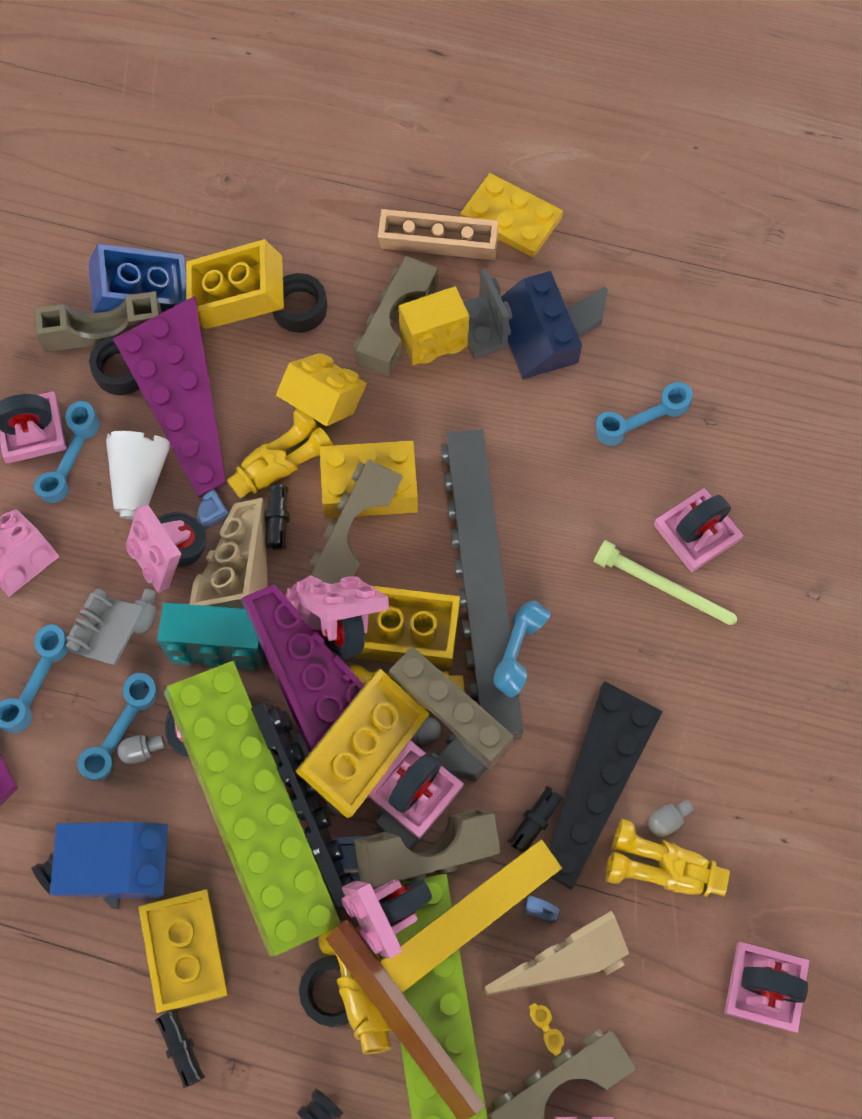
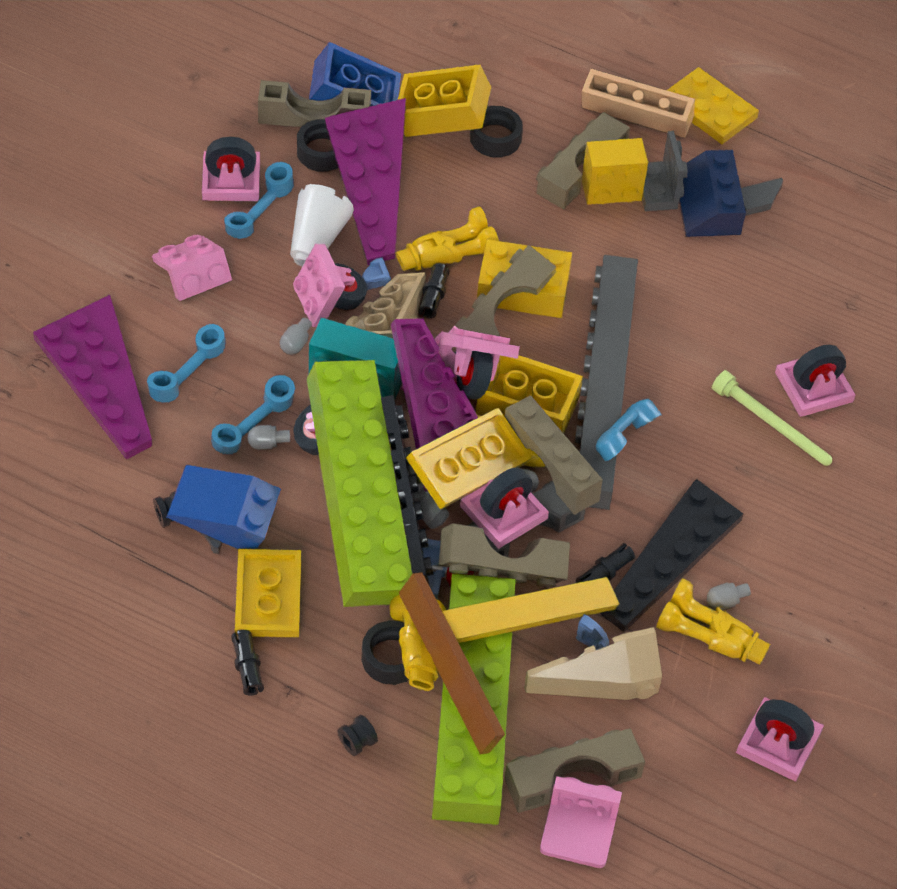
camera: 10 degrees right, 15 degrees down
(105, 628) = (258, 337): light grey hinge -> none
(321, 388) = (500, 195): yellow brick -> none
(384, 911) = (456, 575): bright pink plate -> none
(552, 1037) = (571, 719): yellow piece -> none
(675, 401) = (757, 287): dark azure piece -> none

